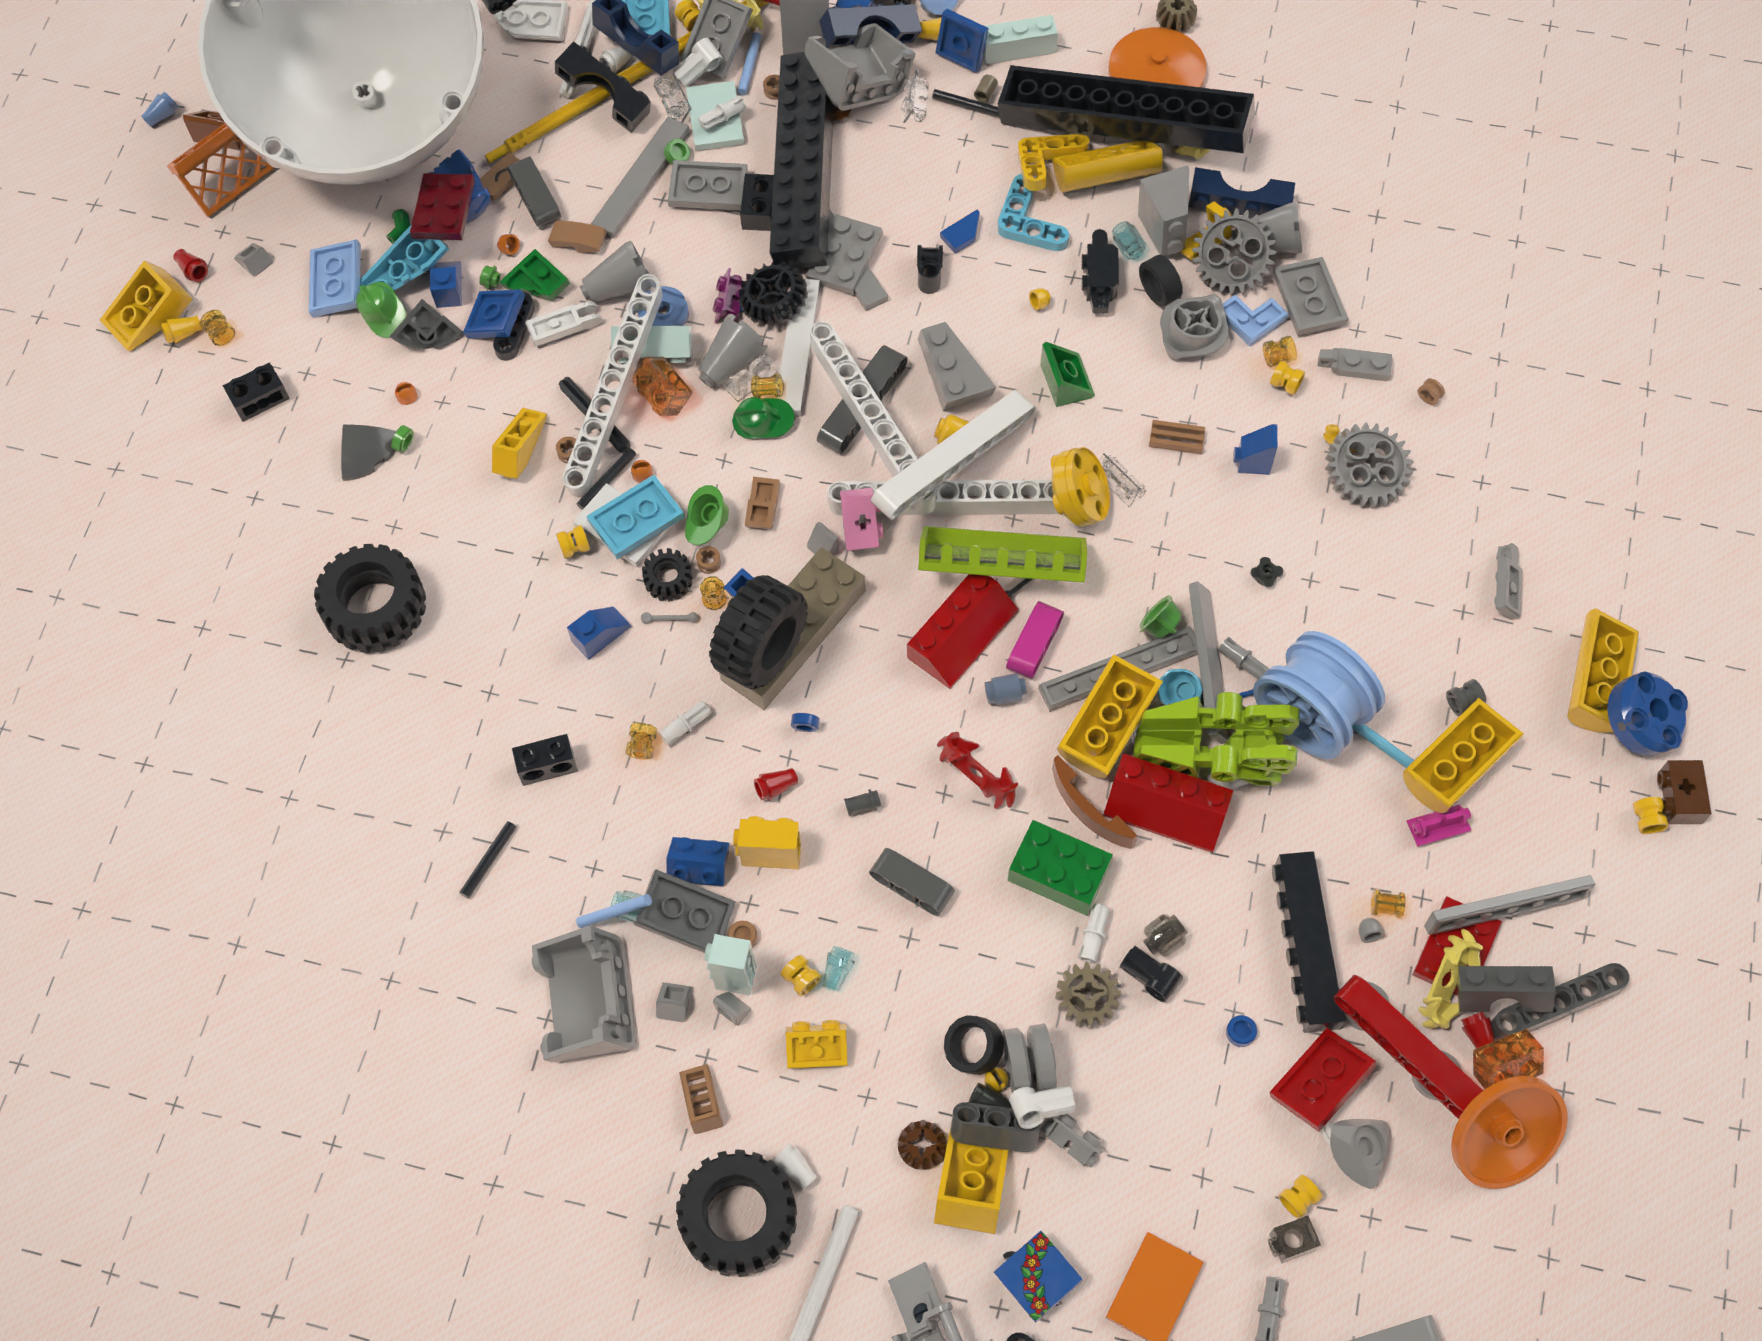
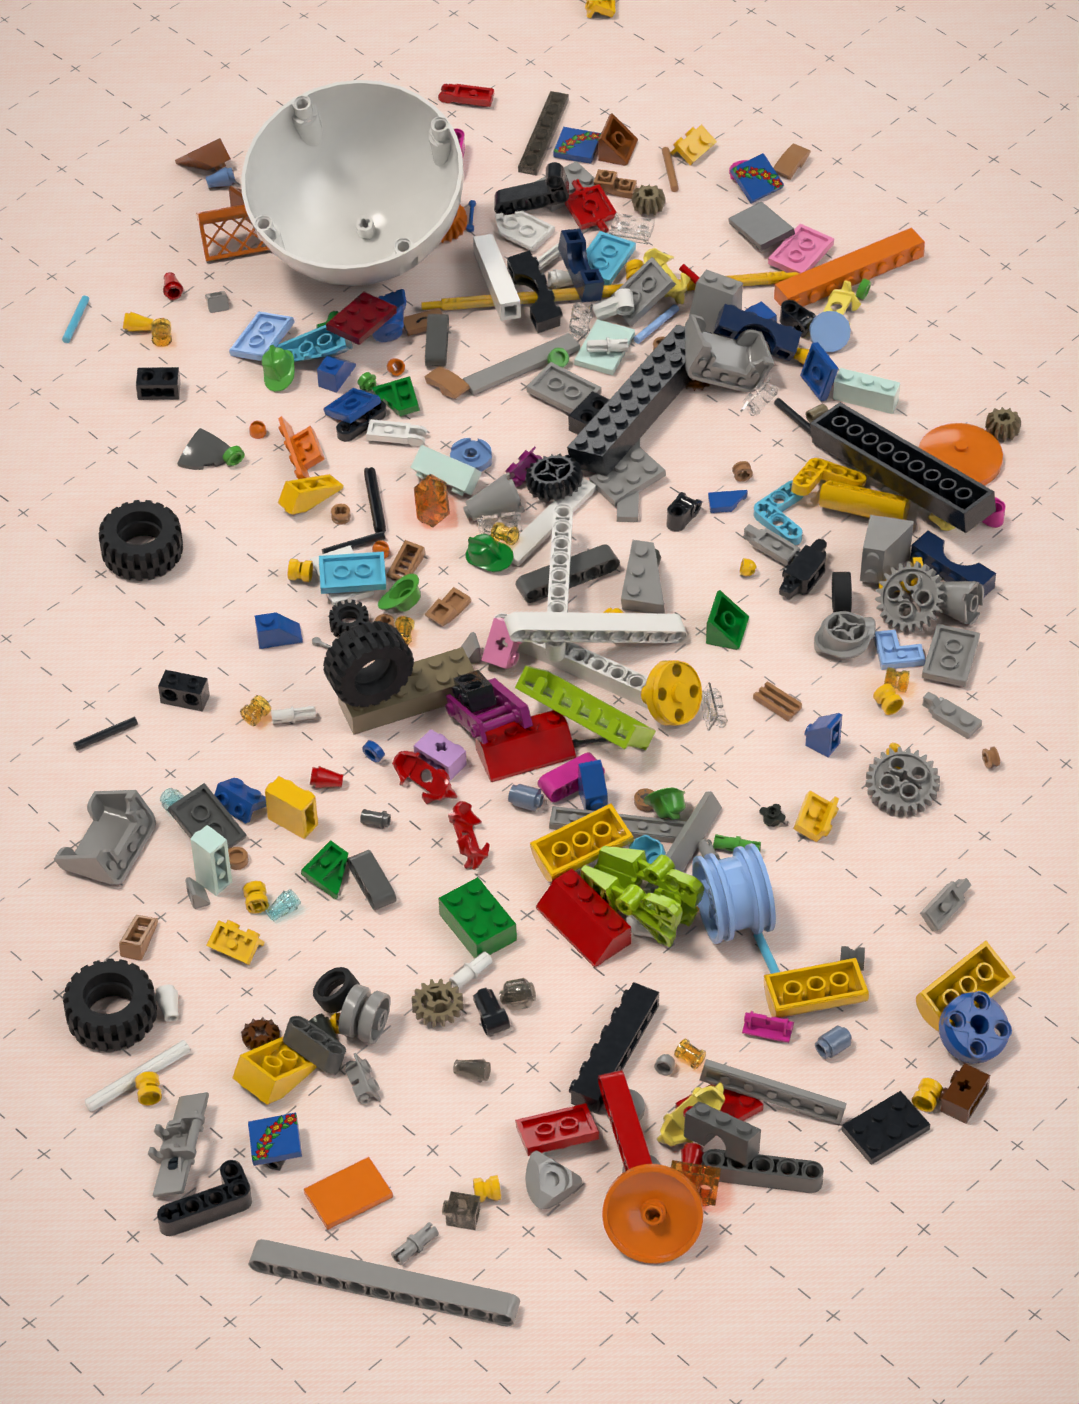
camera: 30 degrees right, 15 degrees down
(104, 358) = (75, 319): none -> medium azure bar
(125, 90) = (206, 157): none -> dark orange slope
(145, 304) = (128, 293): yellow slope -> none
(425, 329) = (299, 394): dark grey brick -> none
(476, 391) = (303, 448): none -> orange bracket
(551, 88) = (496, 277): none -> white brick
(613, 397) = (399, 472): white beam -> none
(614, 911) = (165, 796): light blue bar -> none
(615, 275) = (455, 417): light grey cone -> none
(673, 1002) = (162, 873): light grey slope -> none
(678, 453) = (407, 547): none -> medium nougat slope
(735, 556) = (405, 626): none -> clear yellow bush
(848, 1292) = (148, 1088): none -> yellow wheel
(854, 895) = (327, 868): none -> green wing
(861, 718) = (411, 765): none -> red piece
(876, 596) = (474, 691): none -> black brick
(892, 694) = (441, 753): none -> lavender brick
(906, 587) = (507, 703): none -> magenta fence
(958, 190) = (742, 466): none -> medium nougat bush
(1034, 1107) = (351, 1040): white piece -> none
(1046, 259) = (771, 544): none -> light grey hinge
(1071, 642) = (592, 785): none -> blue slope
(1114, 831) = (531, 914): dark orange slope -> none
(1126, 623) = (639, 797): none -> medium nougat tile
(1128, 240) = (842, 558): clear light blue brick -> none
(1181, 1054) = (474, 1069): none -> clear smoke cone
(1241, 1031) = (527, 1079): blue tile -> none
(1257, 626) = (729, 843): none -> bright green pin
(1314, 550) = (816, 816): none -> yellow bracket
(1518, 806) = (833, 1042): none -> sand blue brick
(1633, 875) = (885, 1127): none -> black plate

